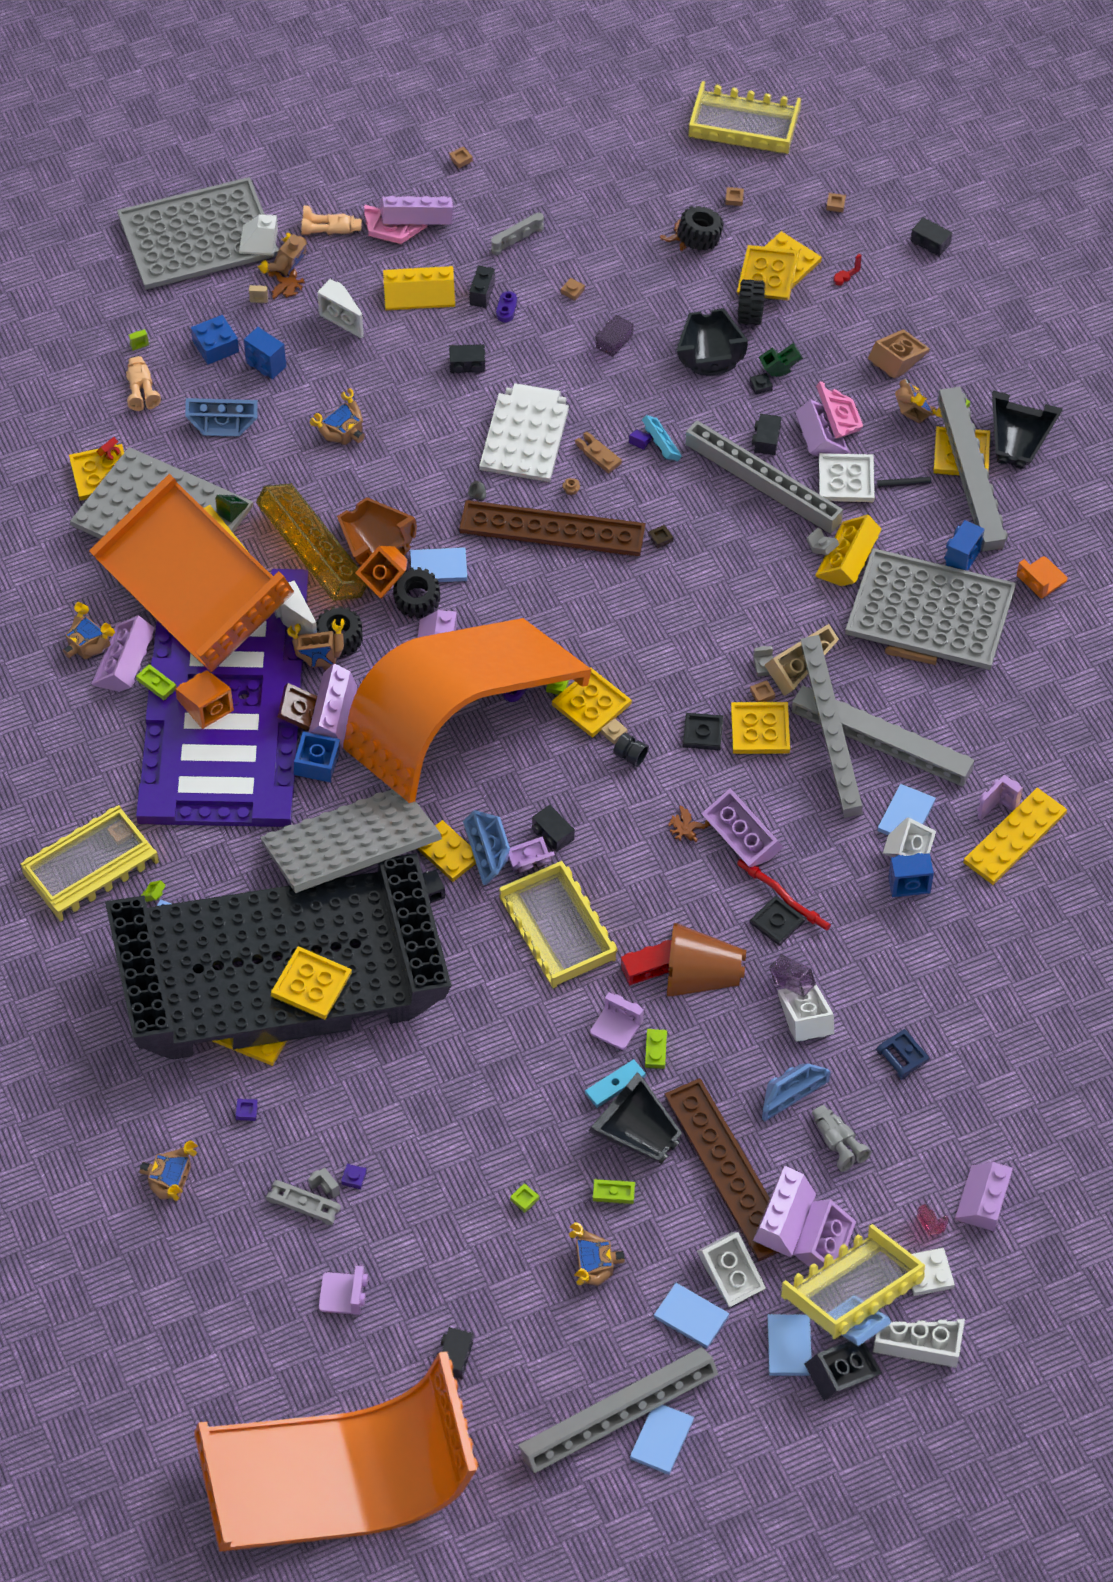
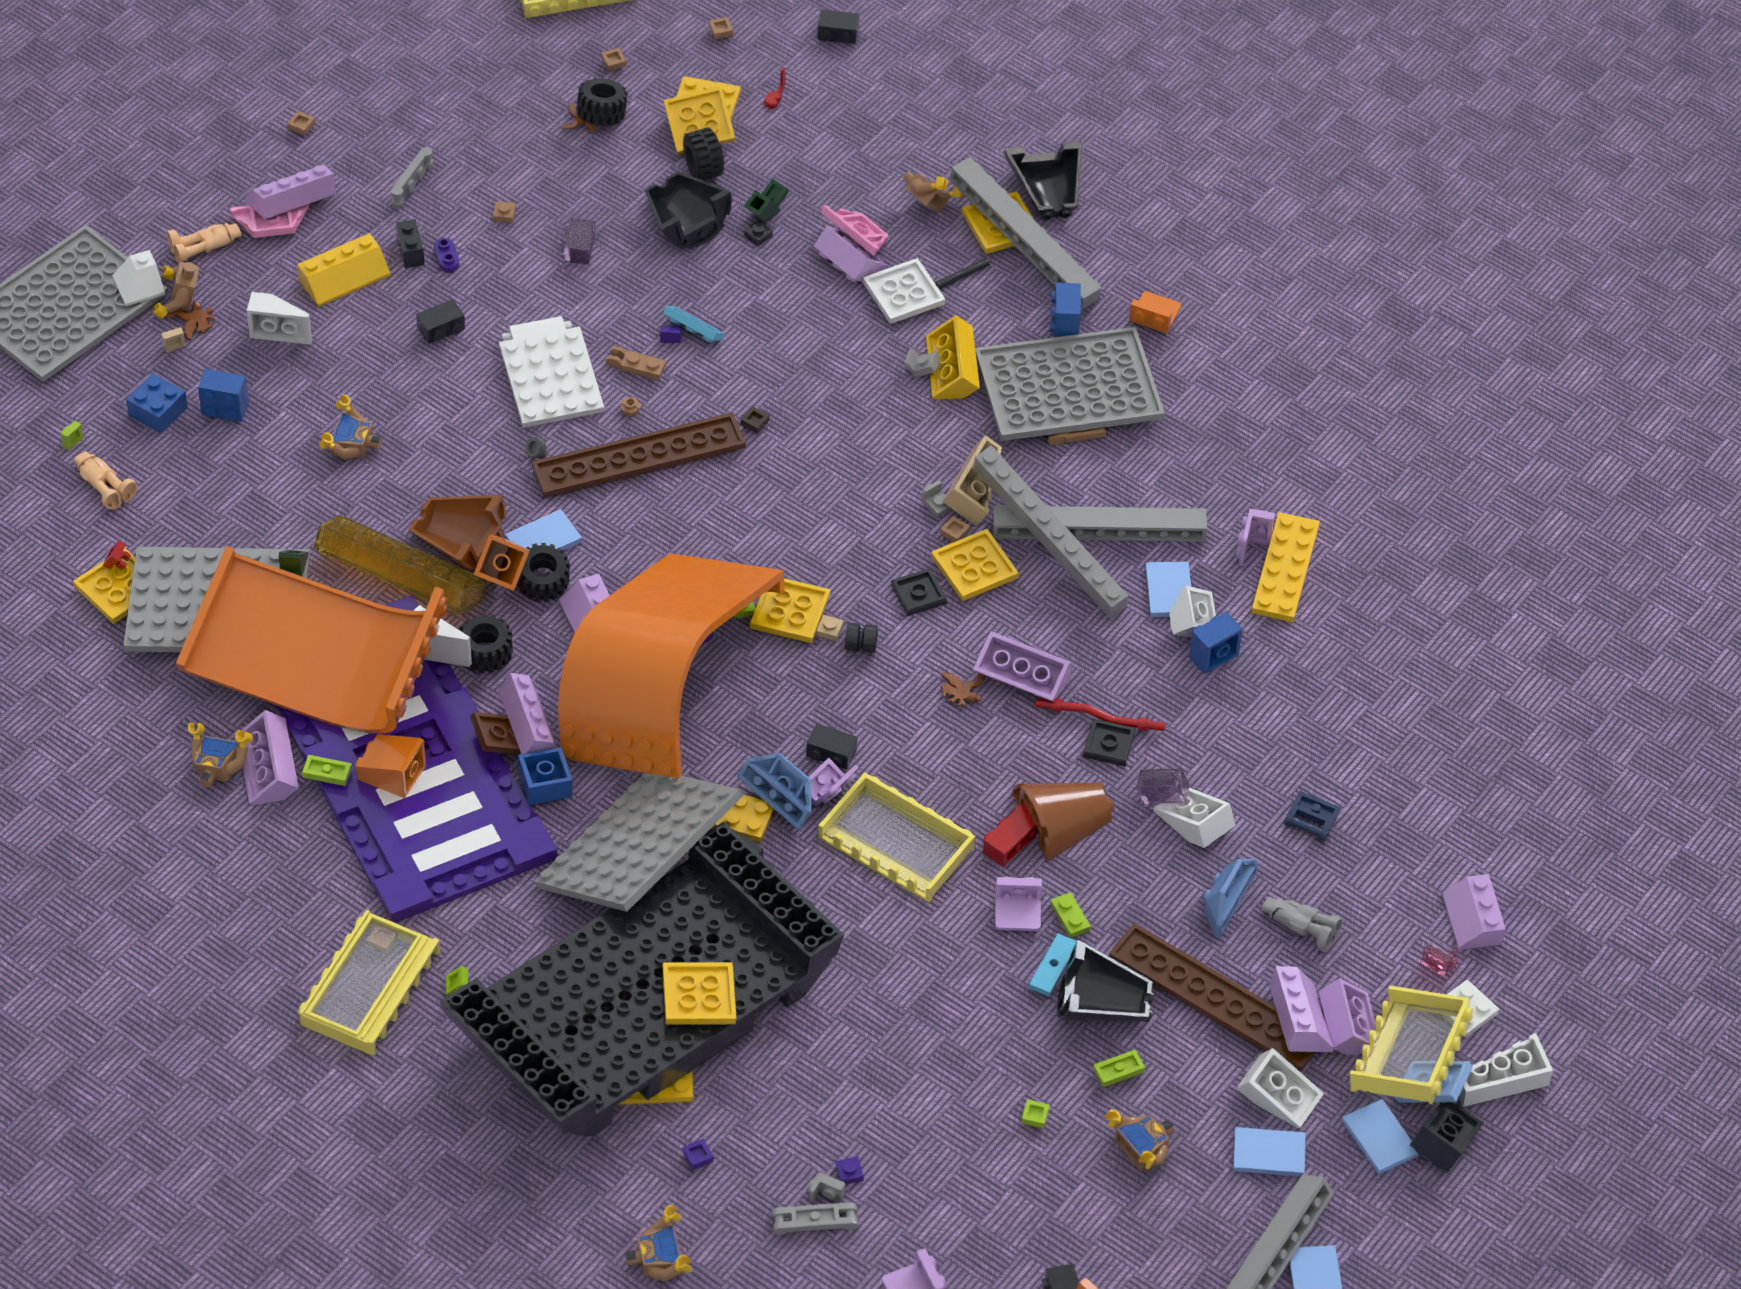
camera: 30 degrees left, 5 degrees down
(221, 416) = (217, 477): medium blue wedge -> none
(318, 648) = (480, 666): medium nougat torso -> none
(764, 477) = (823, 320): light grey brick -> none
(767, 434) = (798, 279): black brick -> none
(897, 353) = (877, 152): medium nougat slope -> none

